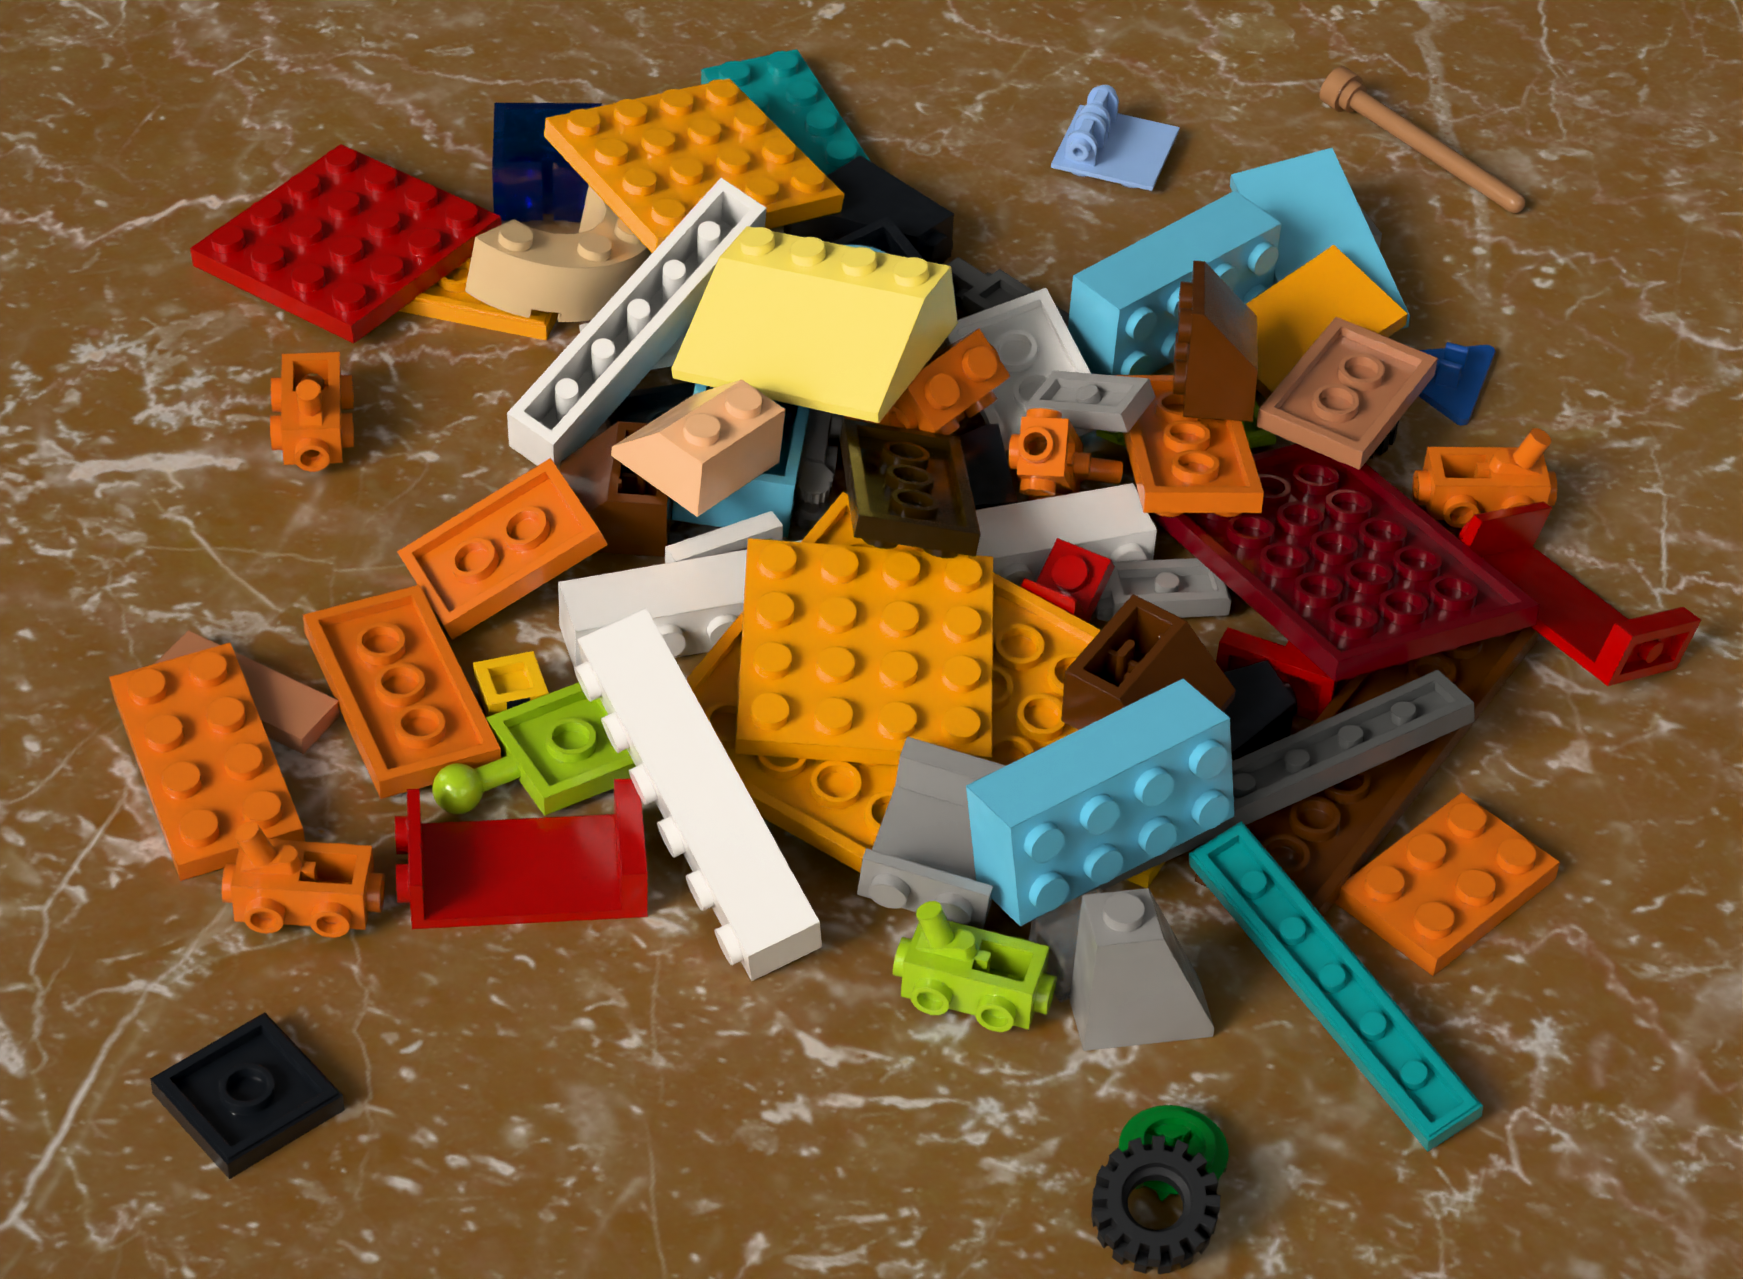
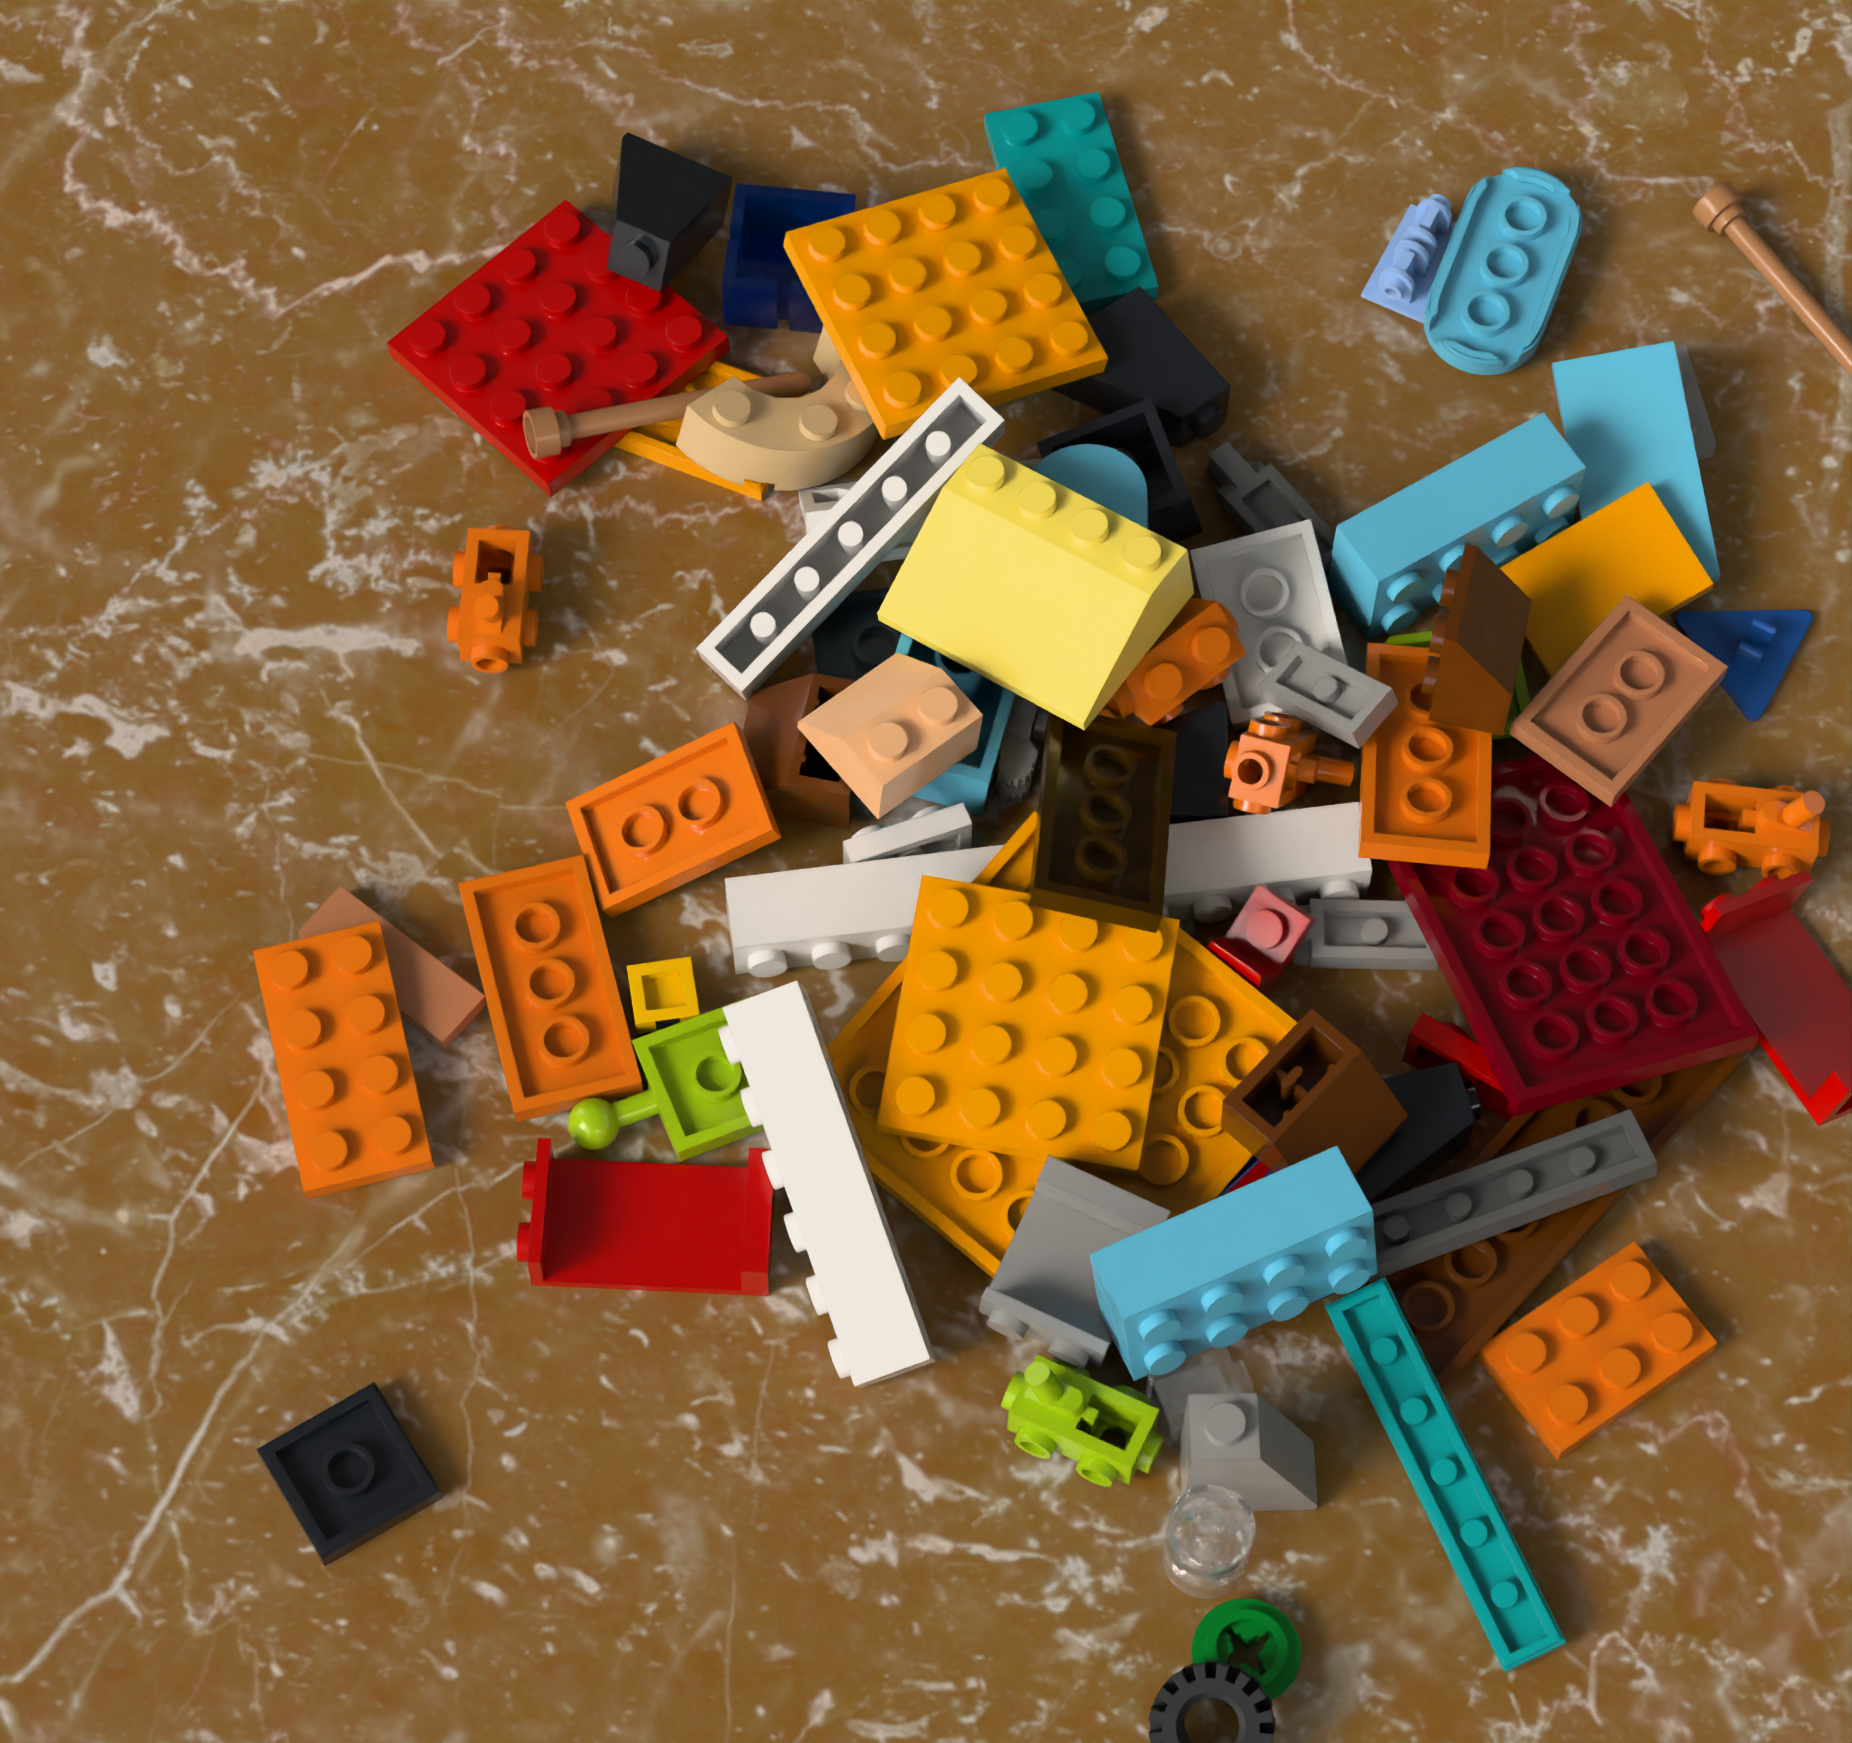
camera: 10 degrees right, 20 degrees up
(301, 884) = (412, 1231): orange brick -> none
(349, 278) = (551, 430): none -> medium nougat piece
(431, 137) = (661, 211): none -> black slope
(1118, 1054) = (1203, 1556): none -> clear wheel
(1169, 138) = (1502, 271): none -> medium azure tile

